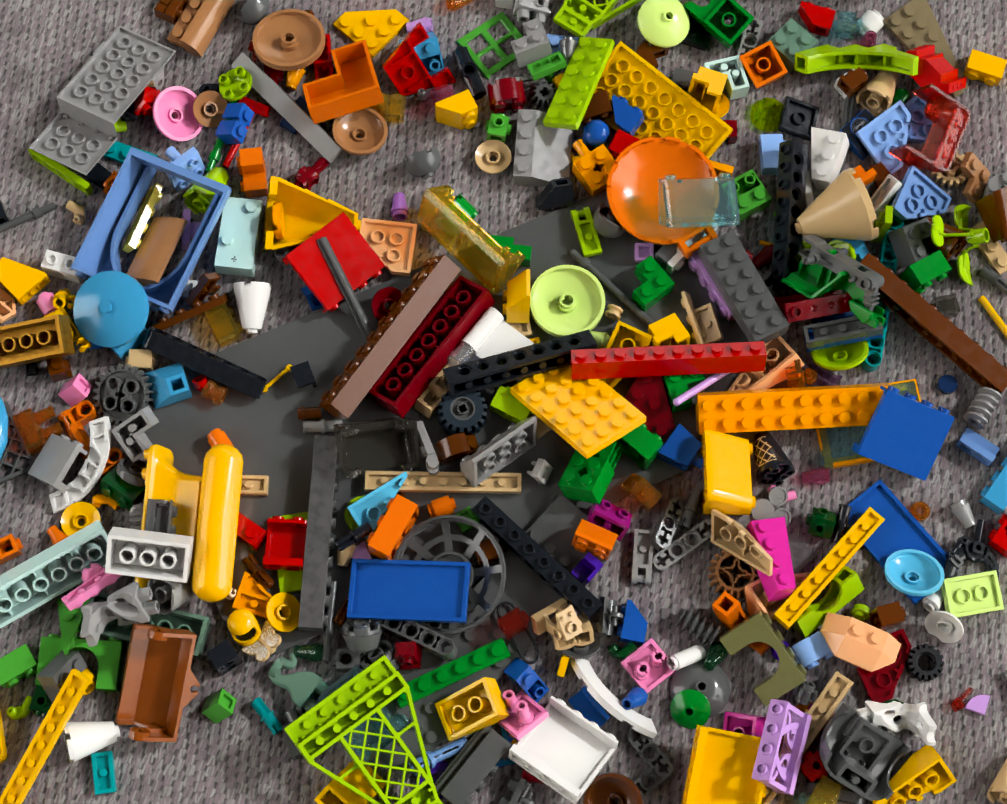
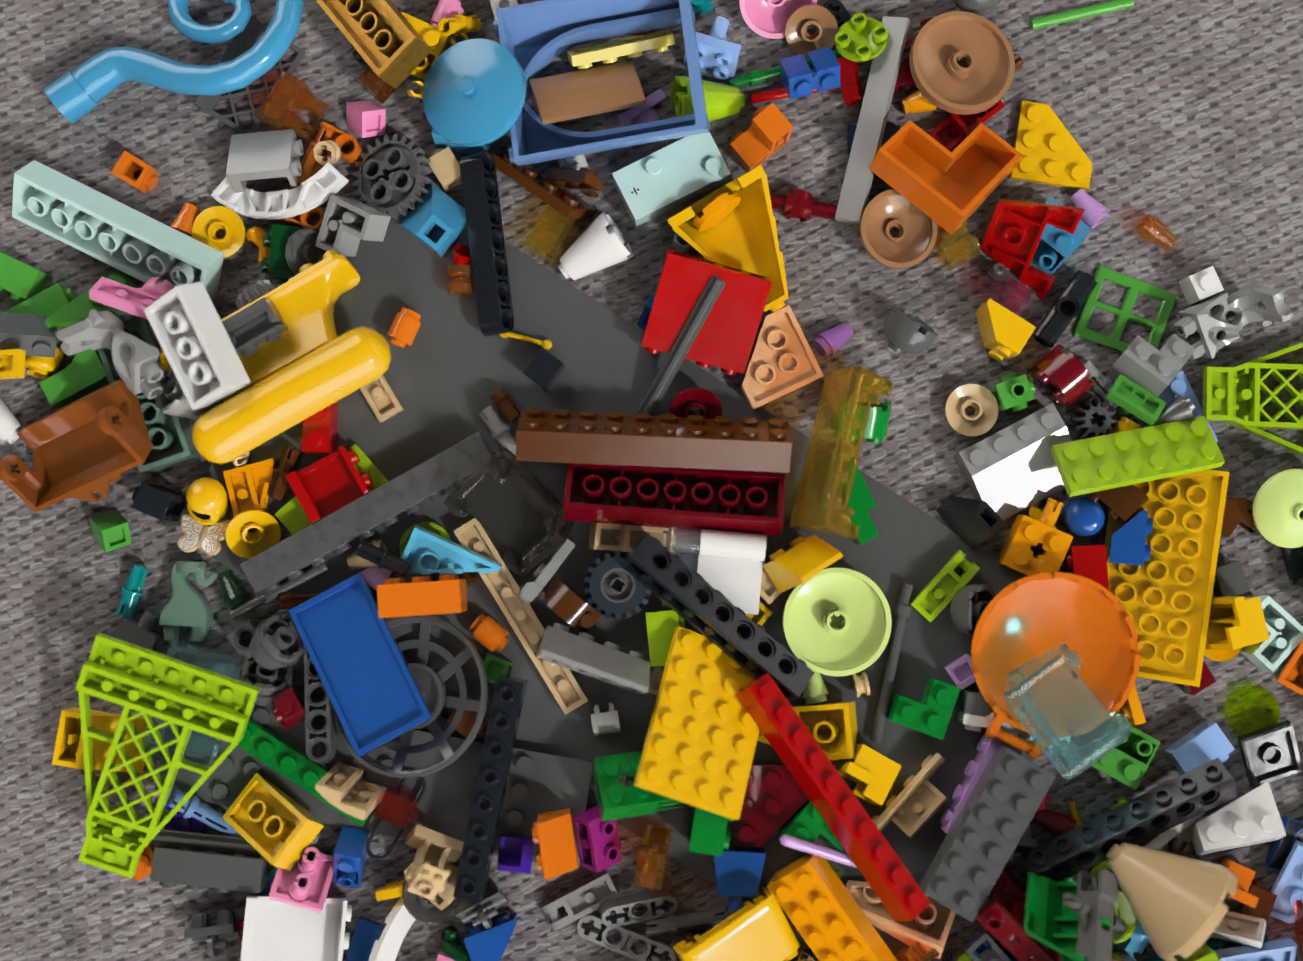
camera: 60 degrees right, 15 degrees up
(82, 426) = (330, 146): none -> tan bush
(476, 645) = (349, 793): none -> tan slope

